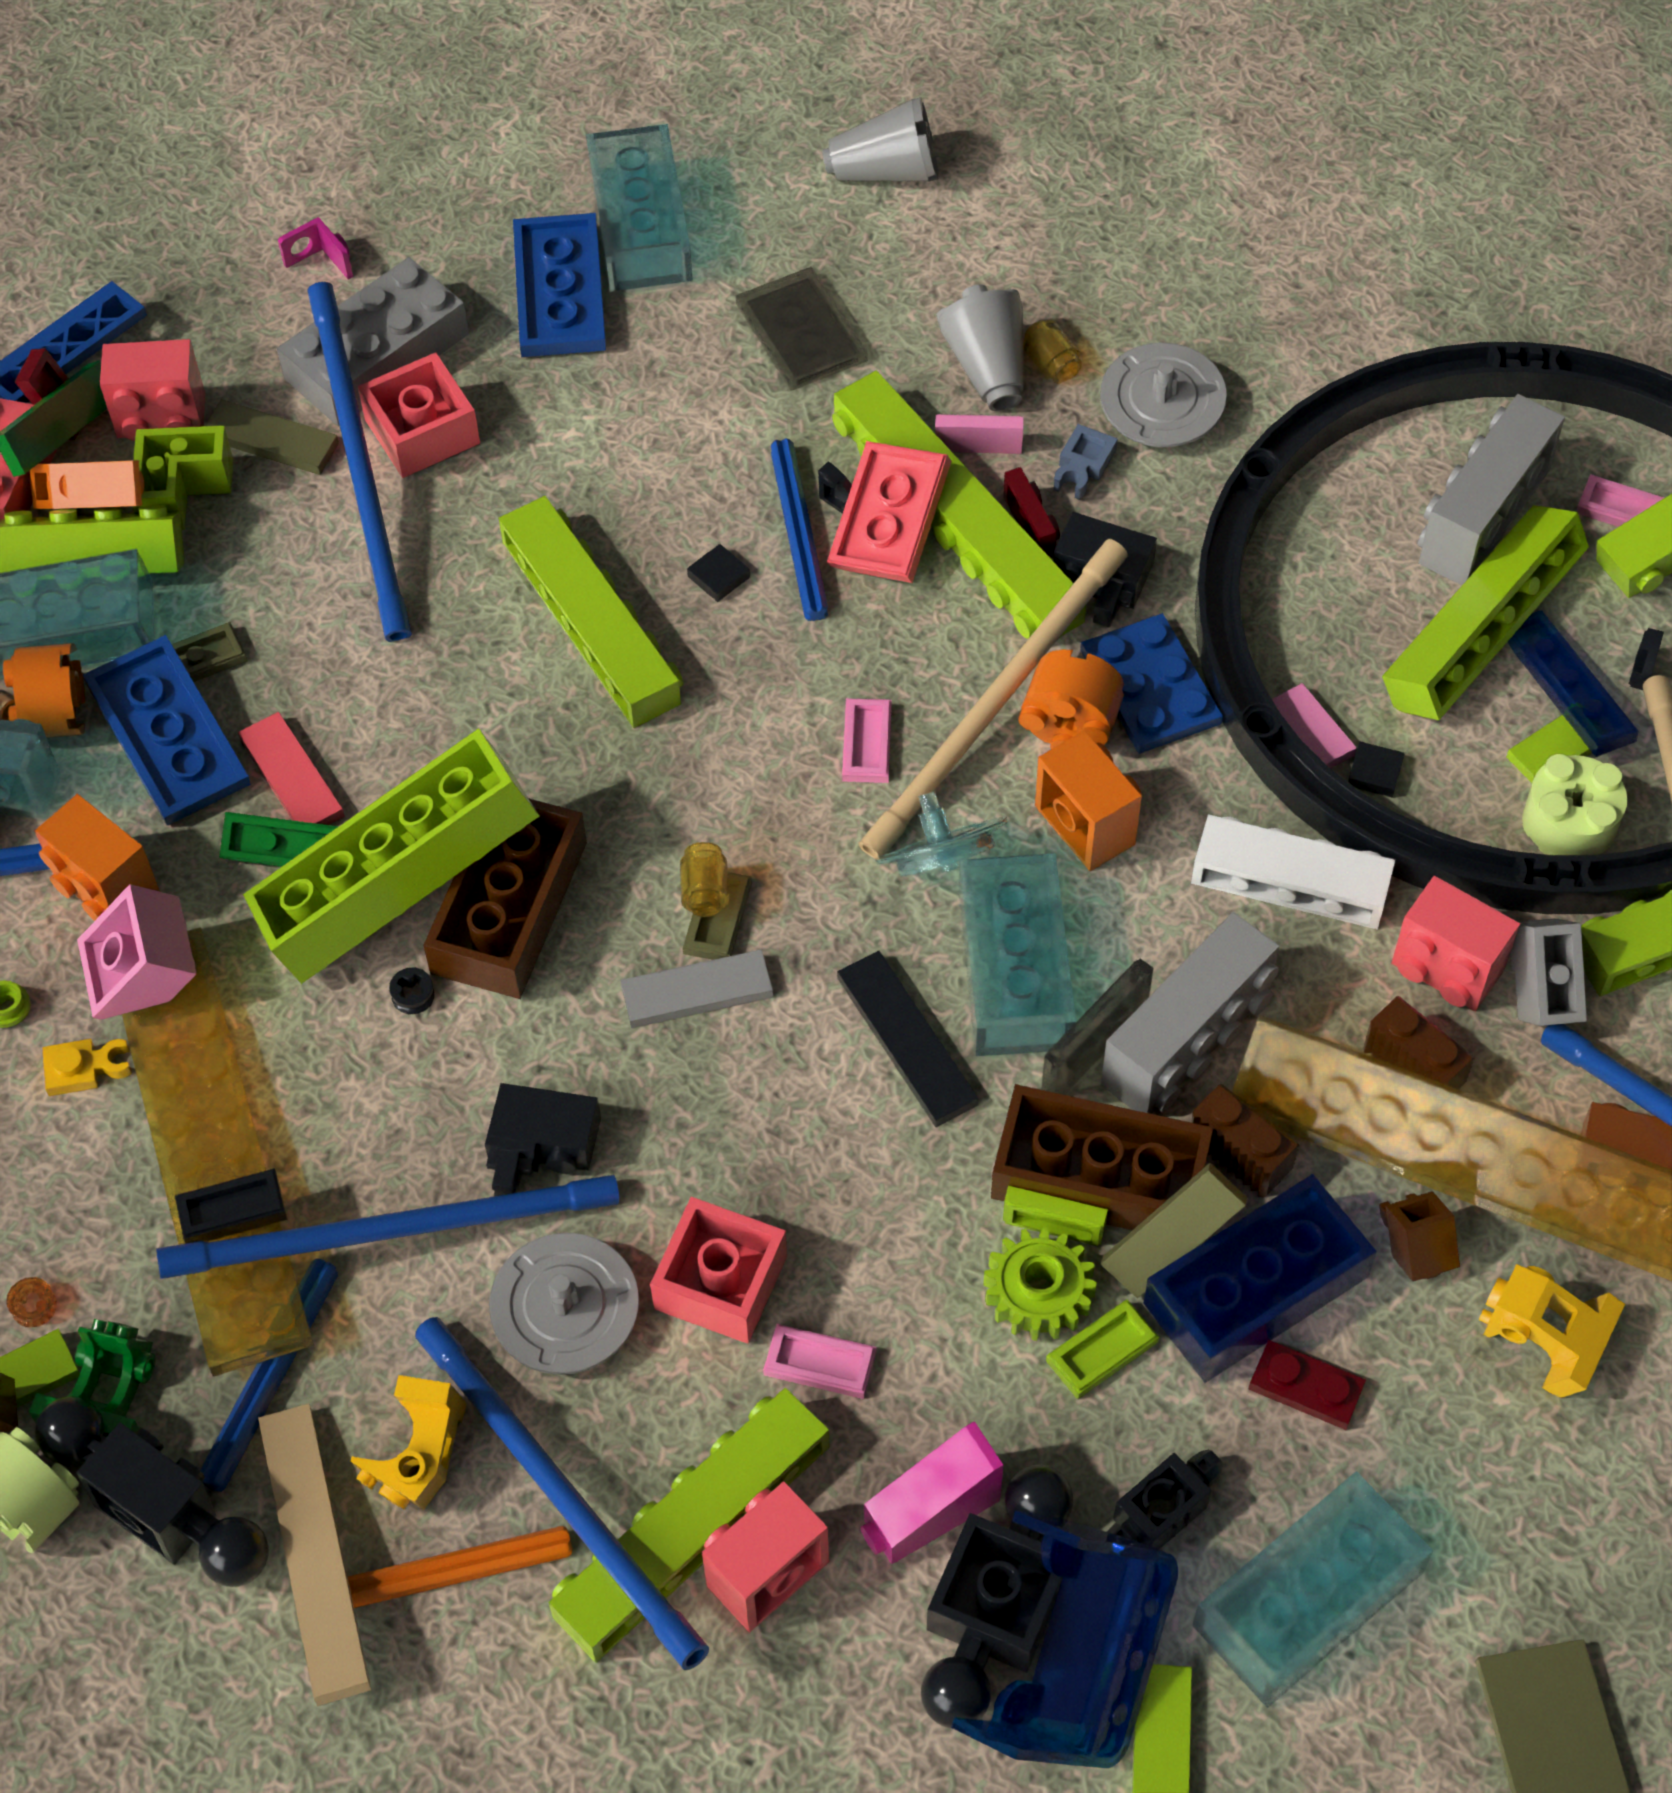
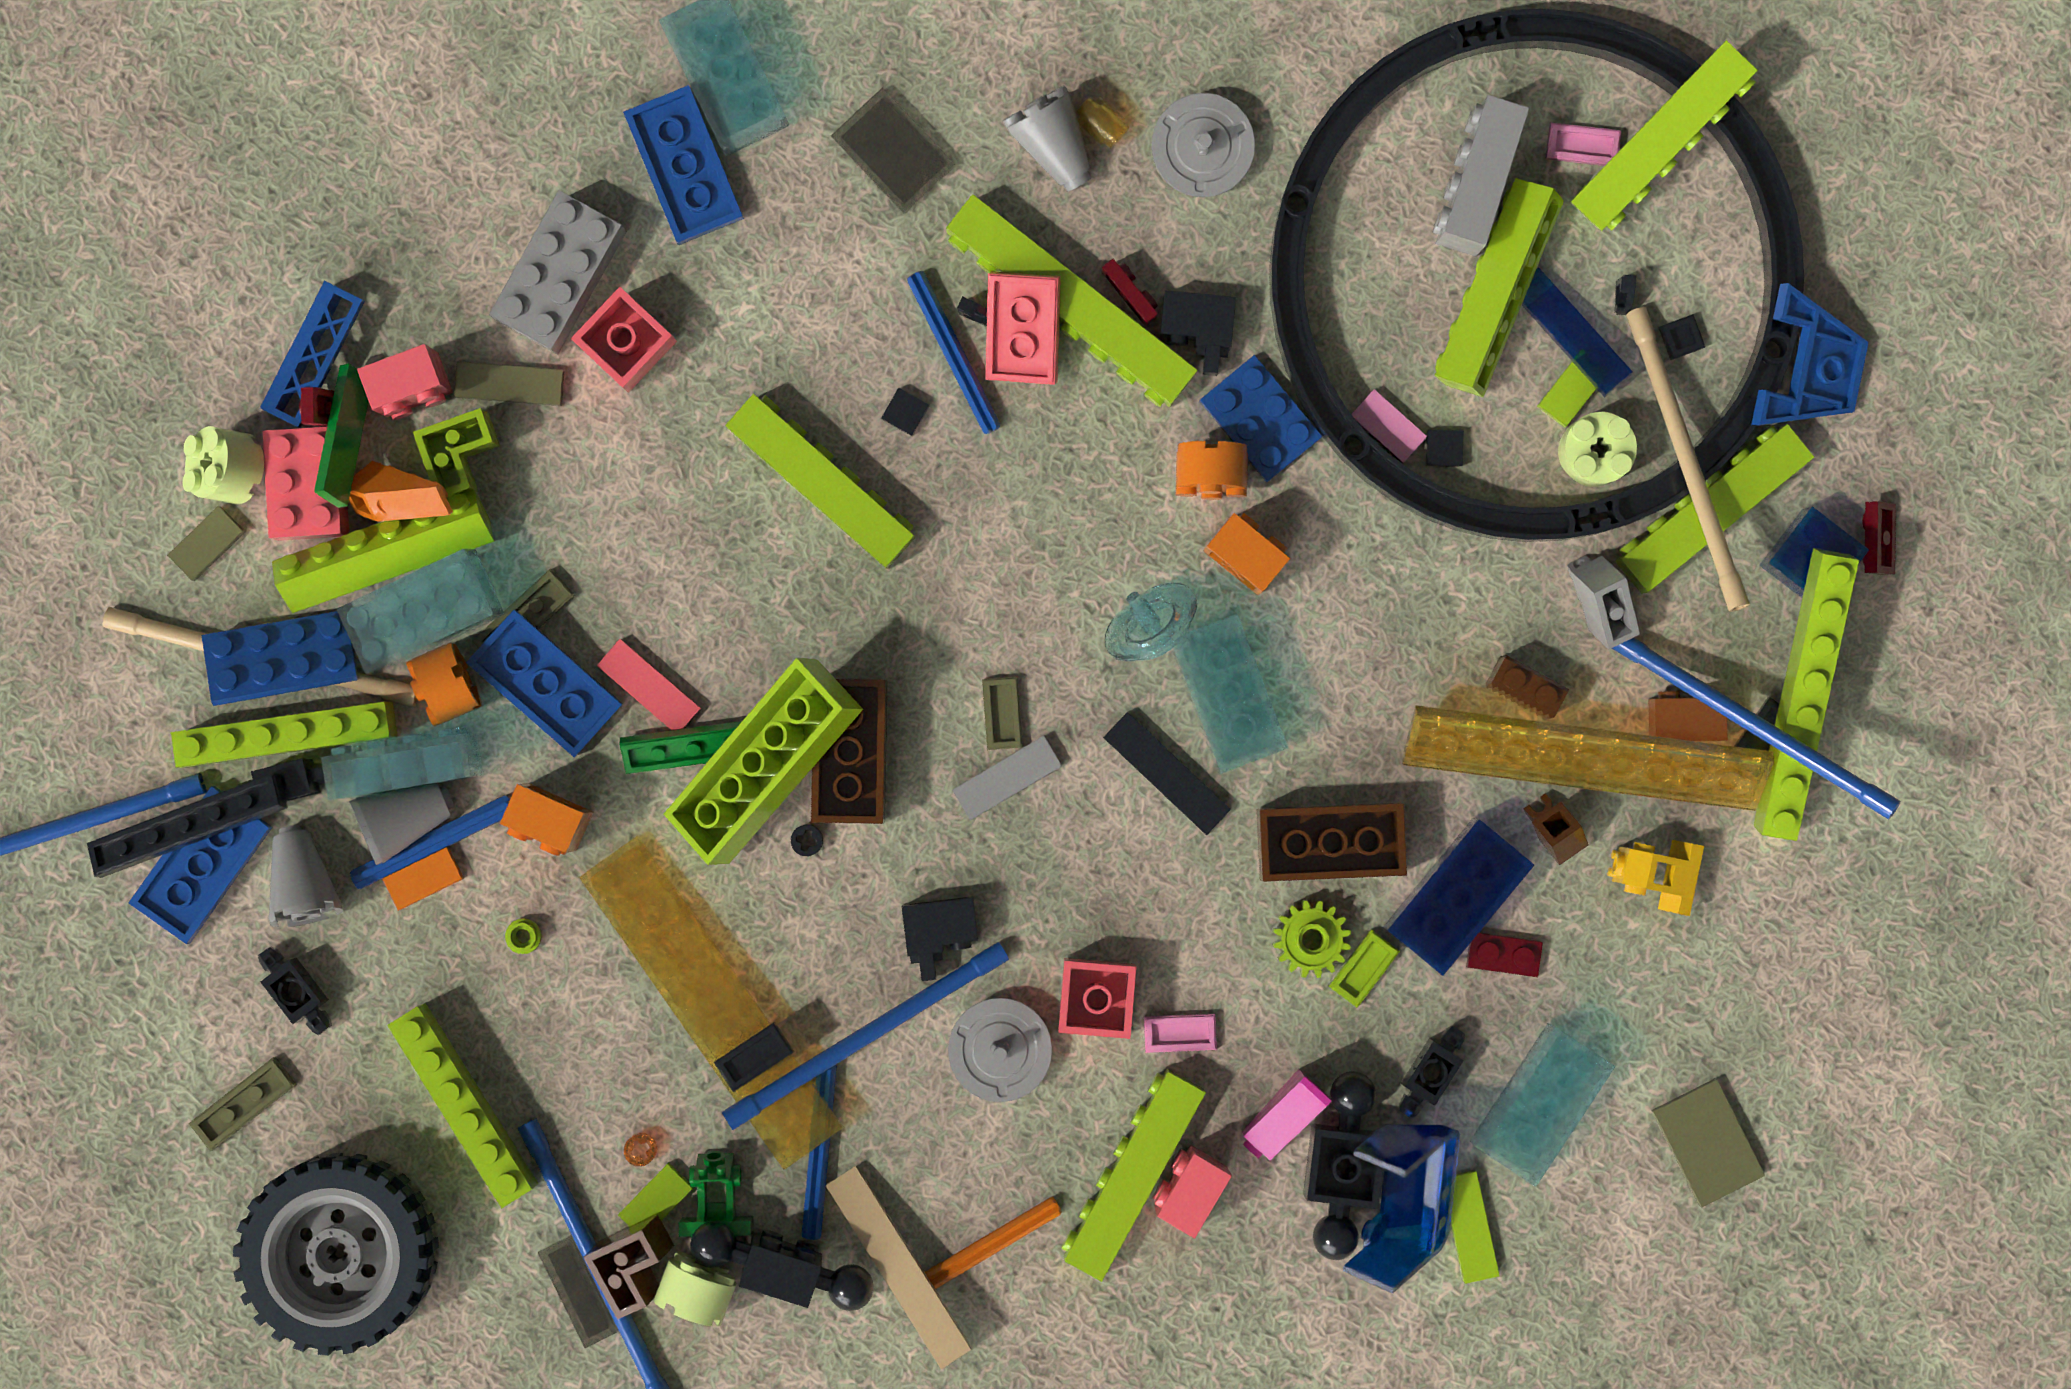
camera: 20 degrees left, 30 degrees up
(76, 1065) = (594, 967): yellow plate -> none
(136, 953) = (607, 885): bright pink slope -> none
(319, 239) = (465, 178): dark pink bracket -> none
(390, 601) = (526, 292): blue piece -> none
(435, 1417) = (945, 1200): yellow tile -> none
(667, 1623) = (1148, 1263): blue piece -> none
(704, 879) = (988, 700): clear yellow brick -> none
(867, 740) = (1064, 531): bright pink tile -> none
(894, 821) = (1199, 358): tan piece -> none
(980, 433) = (1068, 224): bright pink tile -> none
(1059, 1215) = (1309, 887): lime tile -> none
(1083, 457) = (1156, 219): sand blue plate -> none
(1085, 1042) = (1303, 746): clear smoke tile -> none
(1174, 1229) = (1396, 888): olive tile -> none
(1190, 1016) = (1365, 712): light grey brick -> none
(1246, 1141) = (1422, 793): reddish brown brick -> none
(1292, 871) = (1405, 560): white brick -> none
(1454, 944) = (1536, 599): coral brick -> none

